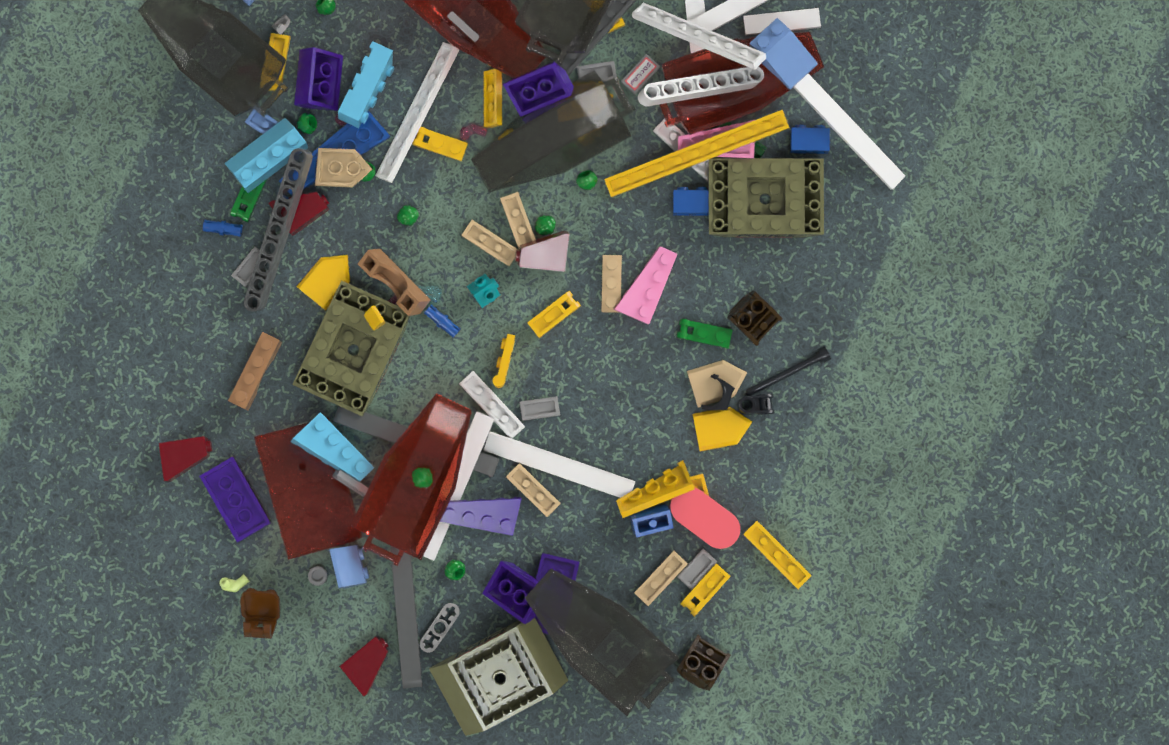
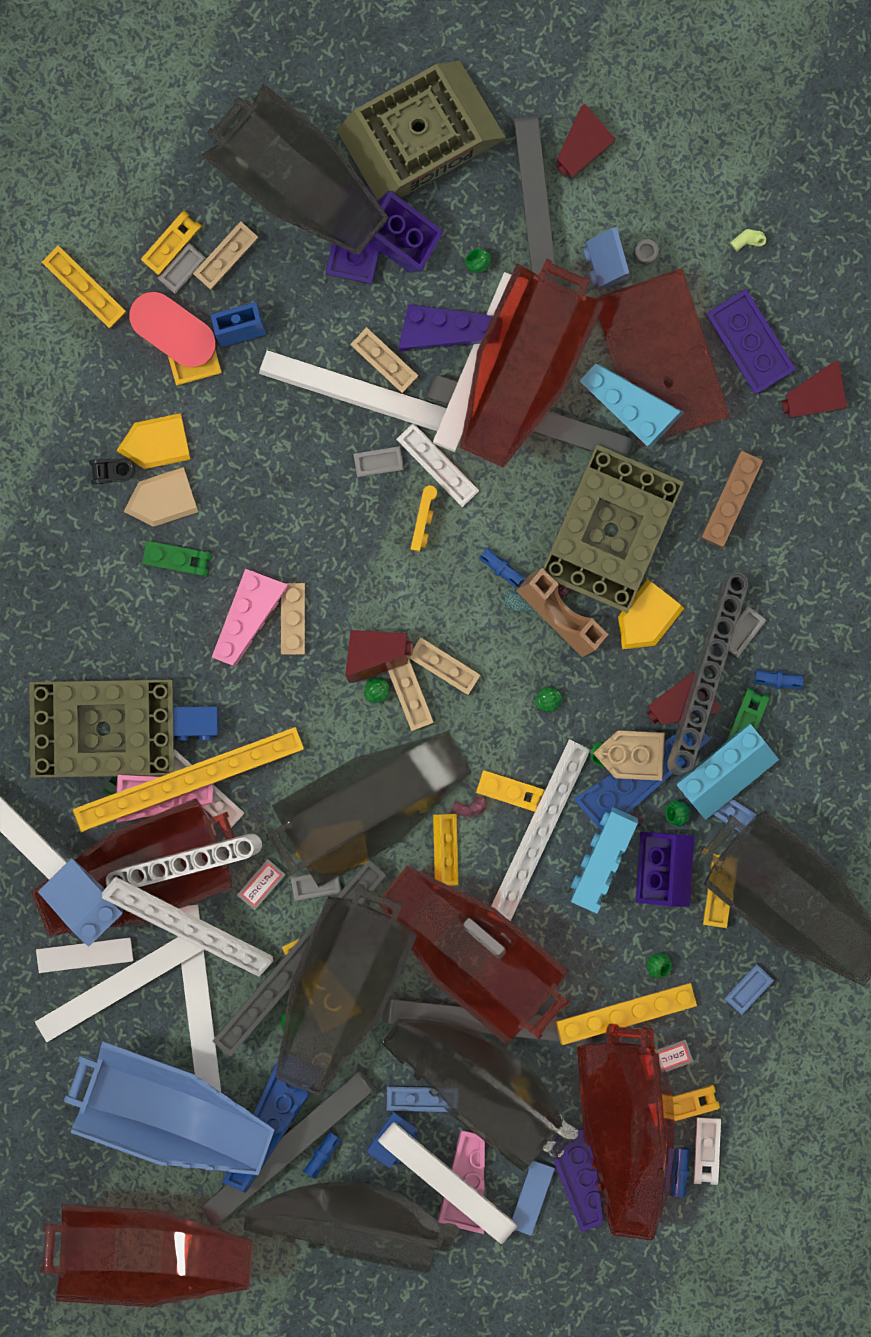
camera: 175 degrees right, 5 degrees up
(260, 608) = (711, 207): reddish brown piece -> none
(281, 24) = (714, 939): light grey tile -> none
(350, 482) = (607, 363): light grey tile -> none
(374, 318) = (584, 564): yellow slope -> none
(422, 477) = (520, 370): green piece -> none
(452, 618) = (509, 179): light grey beam -> none
(484, 290) = (450, 606): teal brick -> none
(539, 88) = (385, 855): dark purple slope -> none
(553, 314) = (364, 578): yellow plate -> none
(586, 180) = (326, 748): green piece -> none
(669, 485) = (222, 364): yellow wing -> none
(700, 662) = (172, 152): dark brown slope -> none
(727, 393) = (147, 479): black helmet -> none
(753, 317) = (110, 581): dark brown slope -> none
(810, 140) = (48, 803): blue brick -> none
(820, 356) = (32, 533): black piece -> none

